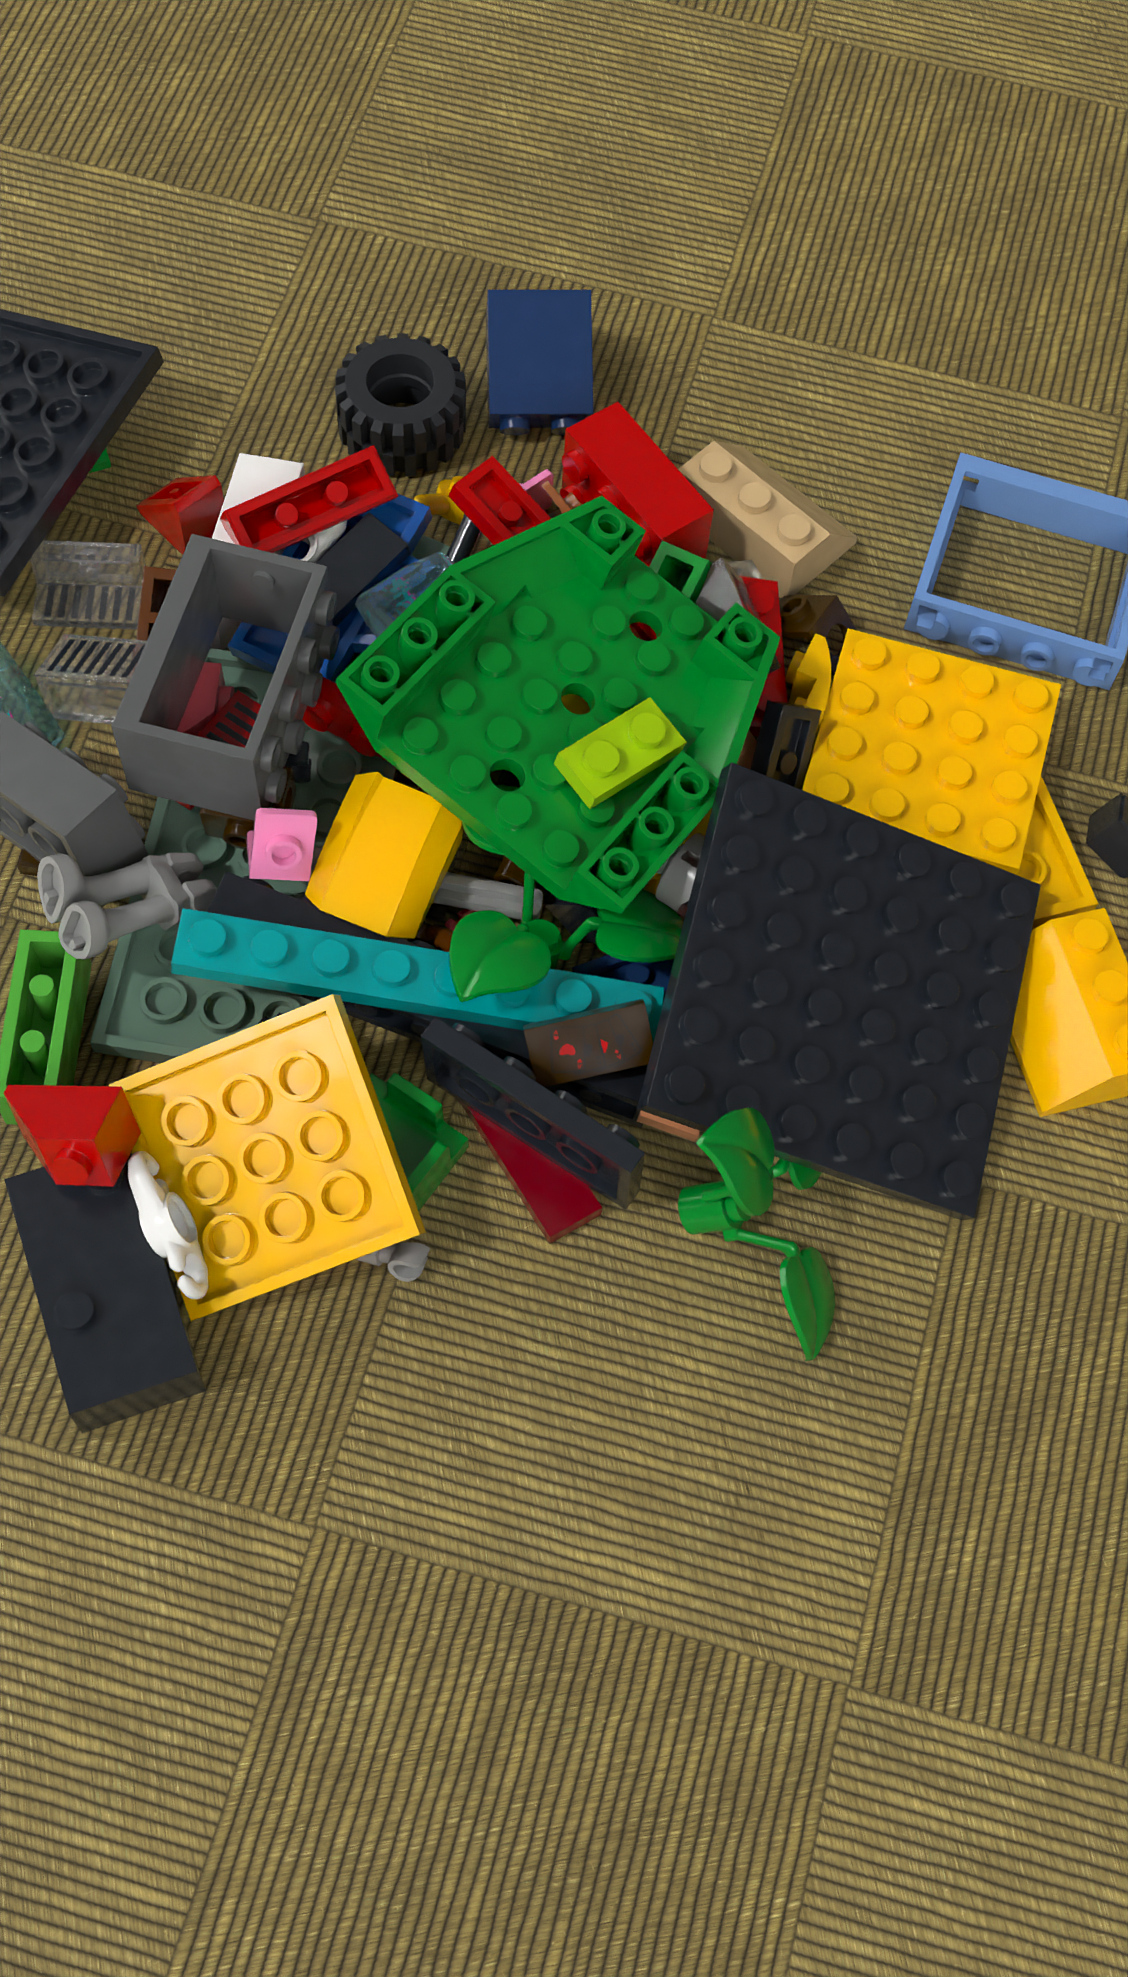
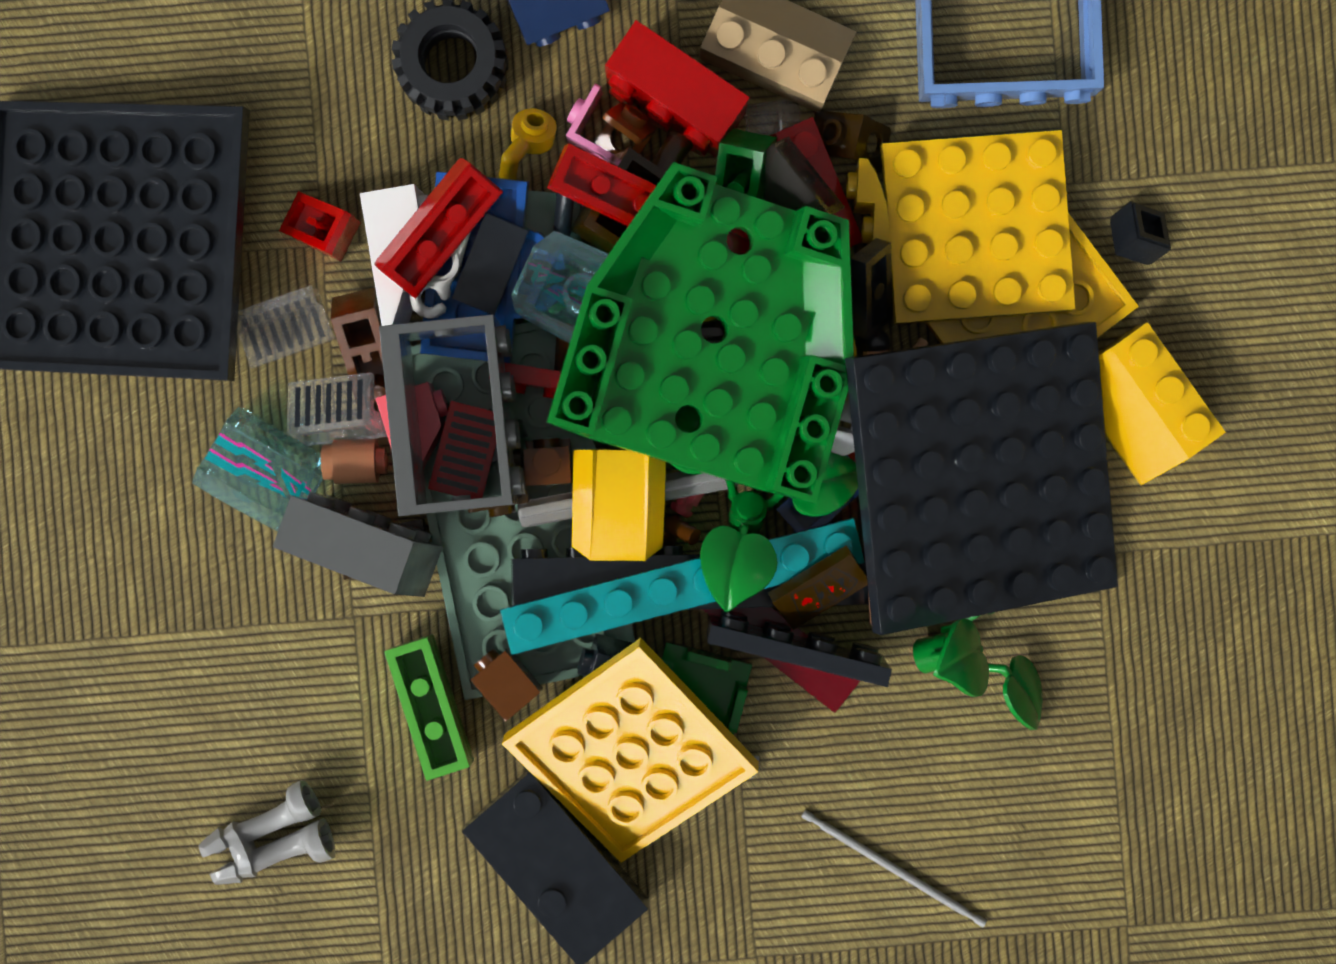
camera: 20 degrees left, 25 degrees up
(75, 900) = (437, 641): light grey piece -> none
(76, 1130) = (498, 792): red slope -> none
(90, 738) = (353, 461): none -> nougat brick
(148, 1023) = (505, 682): none -> reddish brown brick
(168, 1224) = (585, 822): white piece -> none
(281, 844) = (545, 530): bright pink bracket -> none
(317, 790) = (548, 462): none -> reddish brown brick
(553, 1478) = (894, 868): none -> light grey piece
(619, 753) = (765, 370): lime plate -> none

